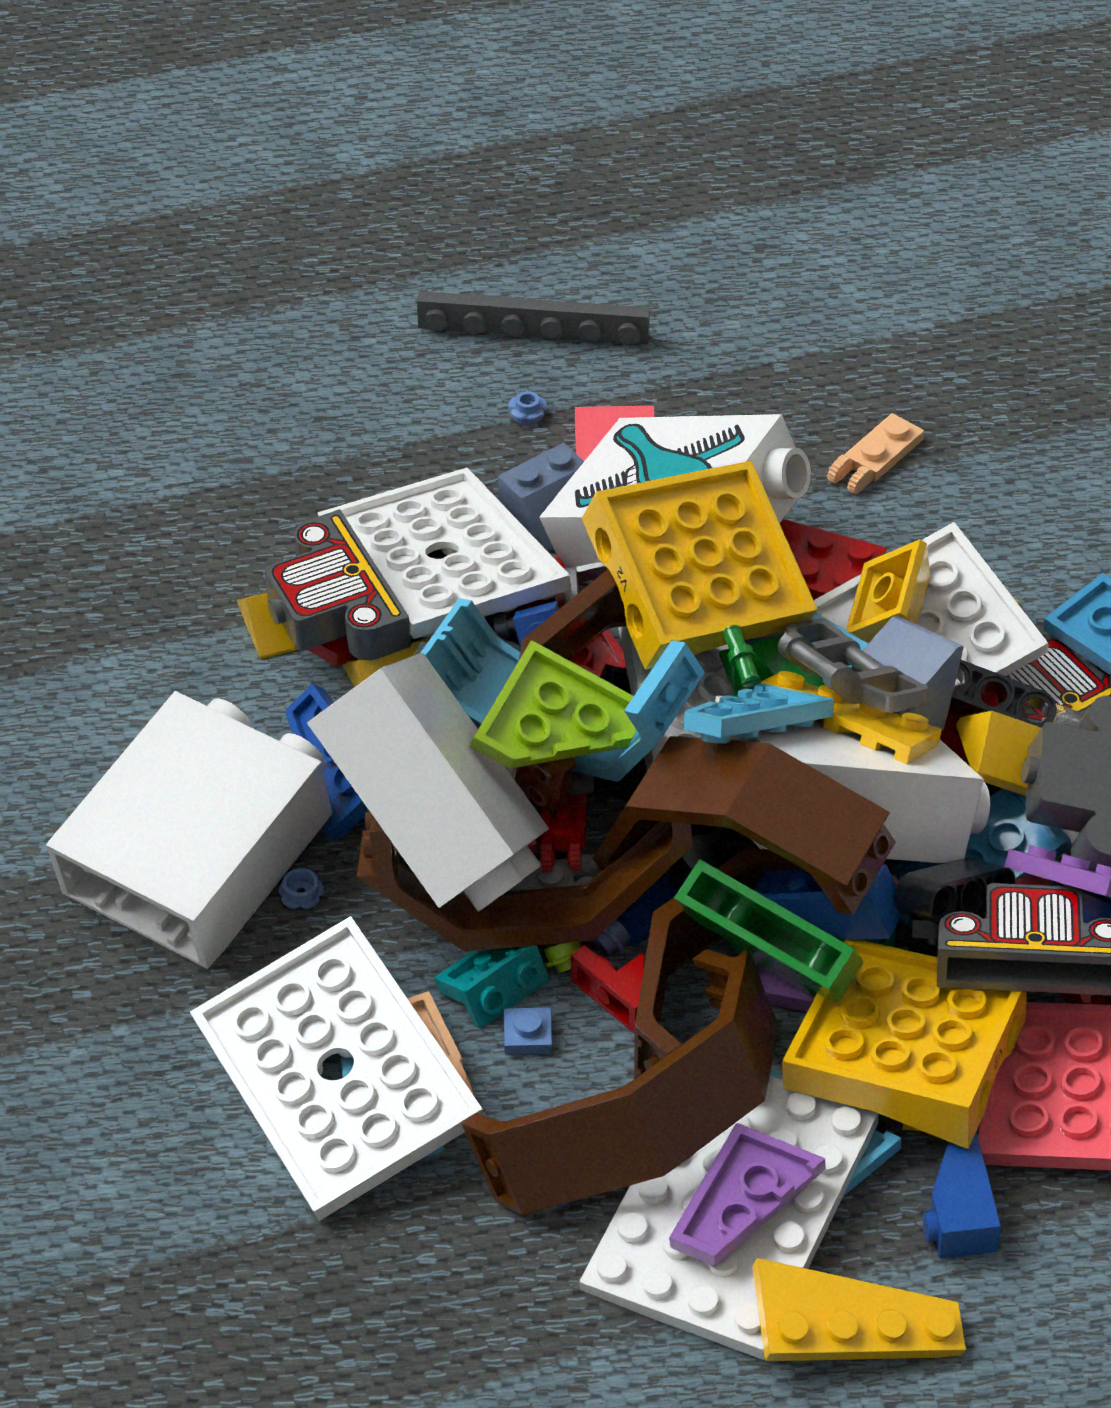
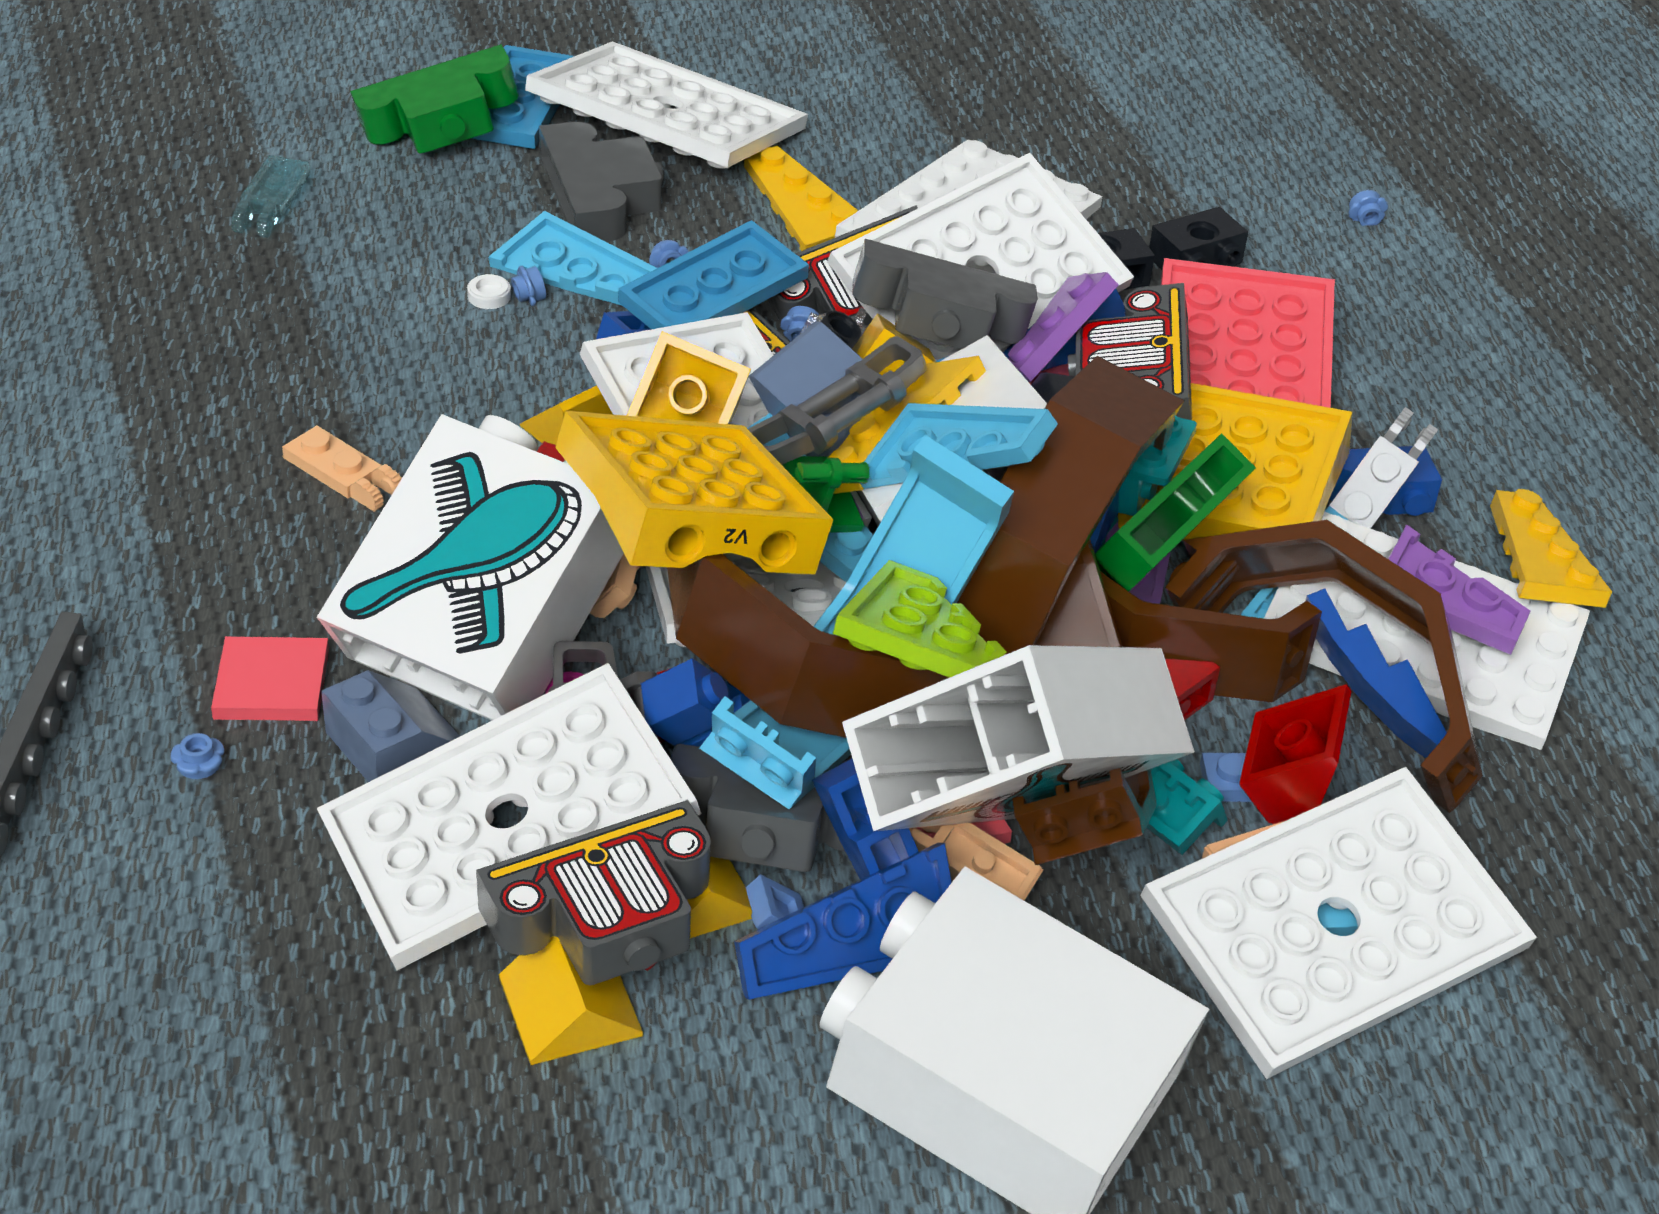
camera: 95 degrees left, 5 degrees down
(518, 1052) = (1294, 753): none -> red slope
(871, 932) = (1155, 468): none -> teal bracket
(929, 1168) = (1380, 474): none -> hinge

